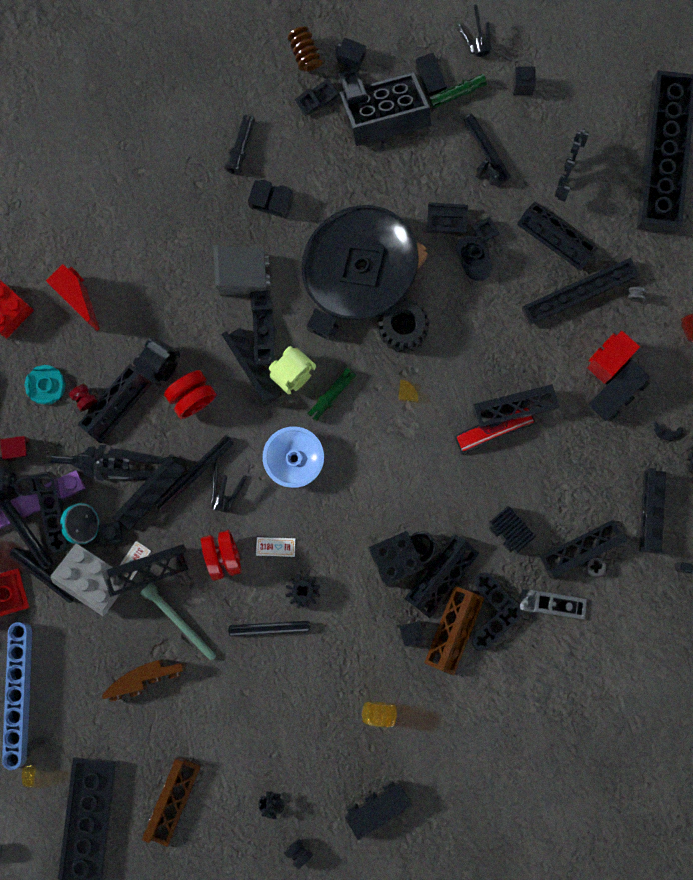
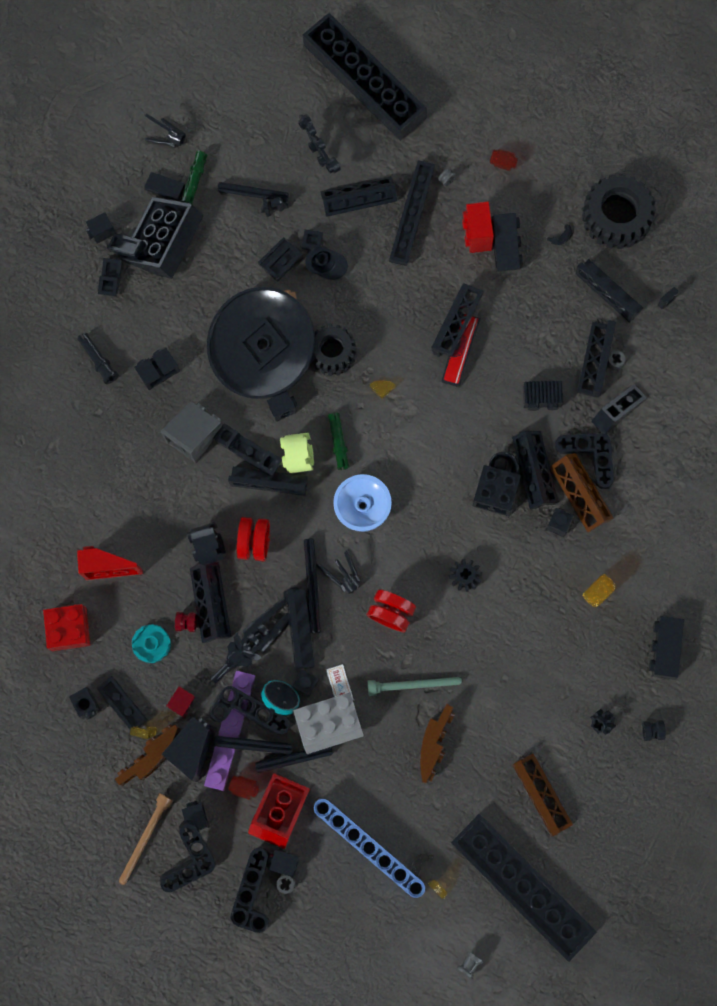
camera: 50 degrees left, 5 degrees down
(139, 564) = (349, 677): black fence -> none
(269, 628) = (472, 622): black axle -> none
(275, 547) = (416, 571): white sticker -> none
(303, 49) = (67, 258): reddish brown piece -> none
(524, 80) = (228, 128): black brick -> none

